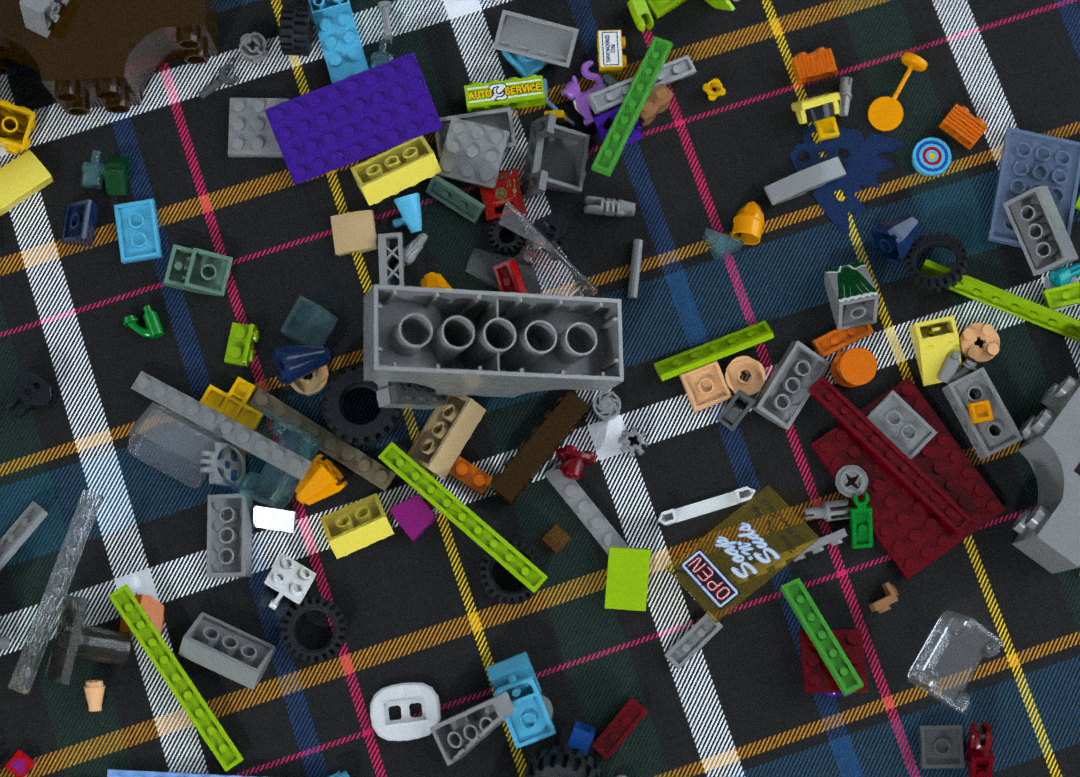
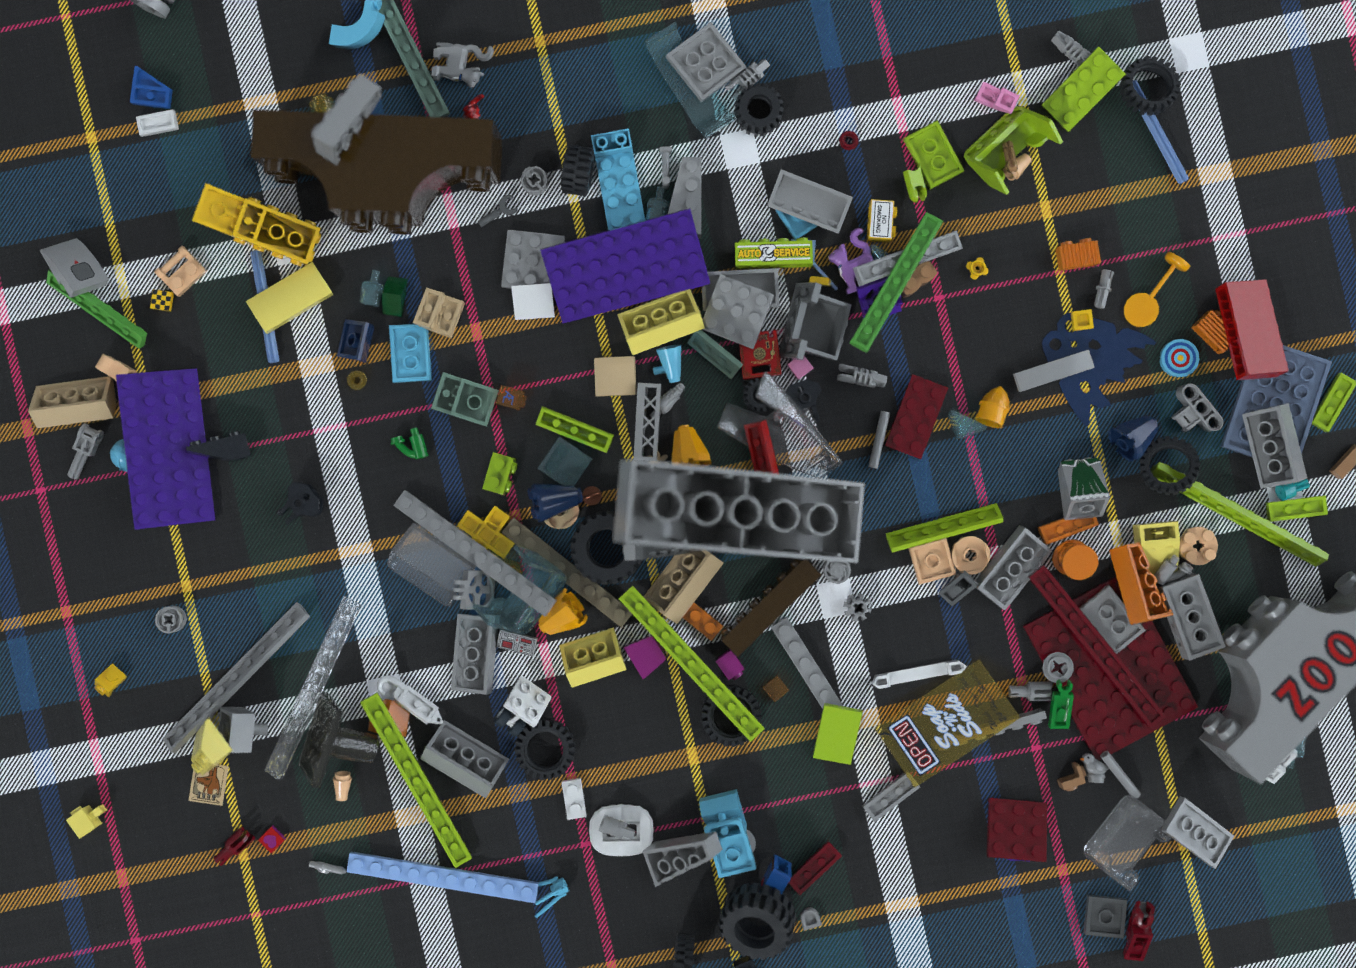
camera: 10 degrees right, 10 degrees up
(83, 258) = (350, 380): none -> clear yellow plate
(164, 187) = (438, 312): none -> tan slope
(165, 593) = (412, 700): none -> white plate
(247, 264) = (511, 398): none -> clear orange brick
(262, 166) = (533, 301): none -> white sticker
(316, 289) = (574, 429): none -> lime brick
(340, 357) = (591, 495): none -> copper tile
(350, 682) = (574, 798): none -> white plate
(398, 706) = (616, 828): none -> light grey hinge
(411, 38) = (688, 190): none -> light grey wedge
(504, 517) = (730, 665): none -> magenta brick
(545, 203) = (800, 367): none -> bright pink tile
(574, 461) = (801, 622): dark red plate -> none
(670, 242) = (916, 416): none -> dark red plate
(817, 107) = (1075, 299): light yellow piece -> none
(822, 637) = (1010, 808): bright green plate -> none
(906, 586) = (1094, 768): none -> light grey animal
(922, 385) = (1138, 585): none -> orange wedge
(934, 589) = (1120, 774): none -> light grey piece
(950, 211) = (1188, 414): none -> light grey beam
(980, 412) = (1189, 617): light orange tile -> none
(998, 118) = (1251, 329): none -> brick
(1025, 640) = (1197, 832): none -> light grey plate

